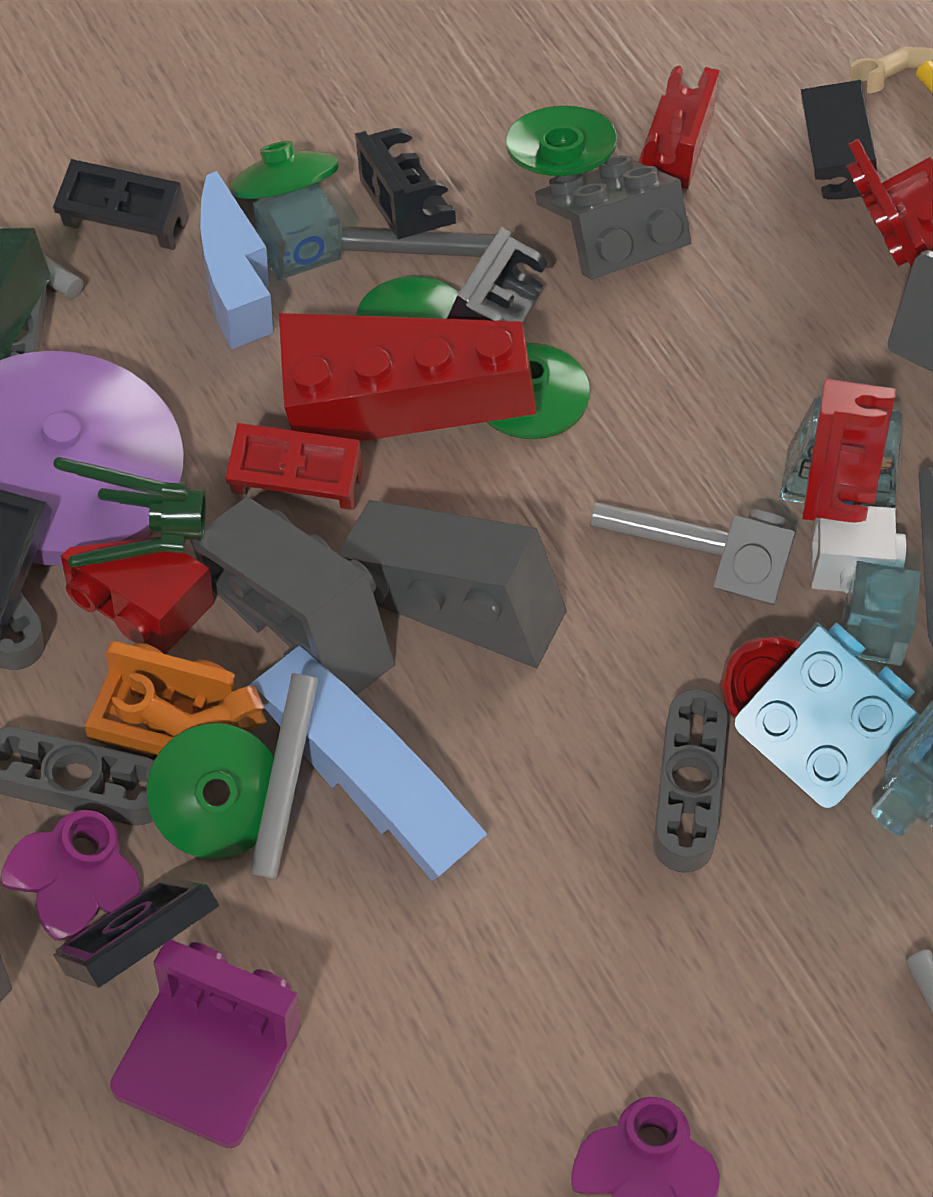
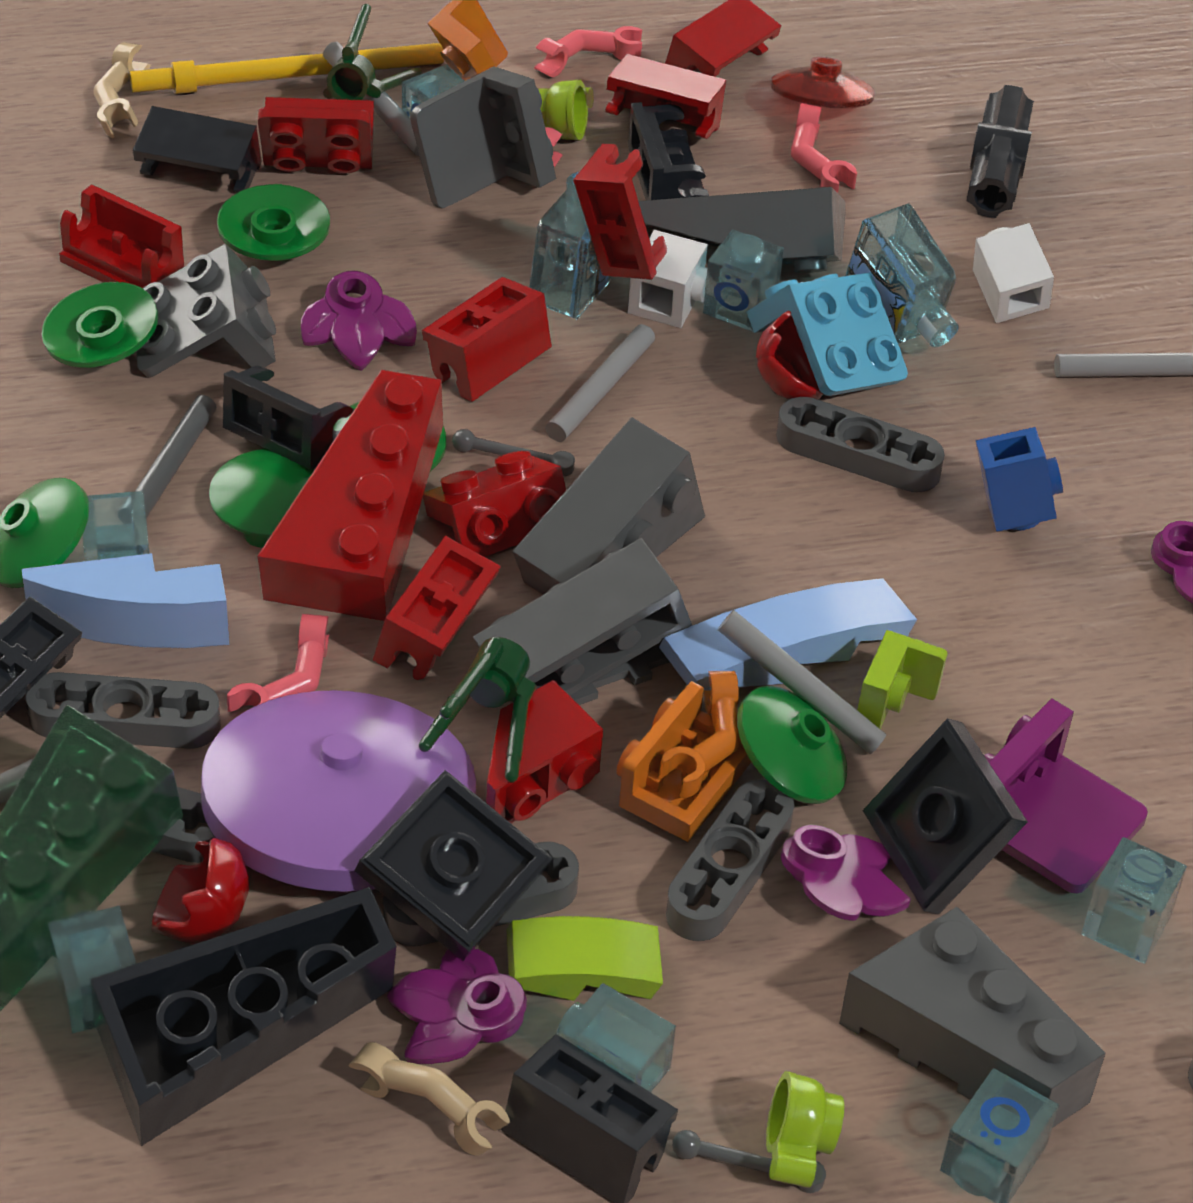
camera: 75 degrees left, 10 degrees down
(89, 1137) = (1133, 900): none -> clear light blue brick
(131, 313) = (170, 696): none -> dark grey beam
(237, 398) = (311, 650): none -> coral arm
(335, 857) = (900, 668): none -> lime bracket
(400, 185) = (101, 453): black hinge -> none
(460, 478) = (498, 504): none -> red bracket
(555, 528) = (465, 440): none -> dark grey hinge
(663, 924) = (1018, 479): none -> blue brick
(669, 323) = (358, 323): none -> magenta plate
(684, 421) = (489, 337): none -> red hinge
(755, 556) = (651, 337): light grey bracket -> none
(767, 219) = (273, 222): none -> green dish

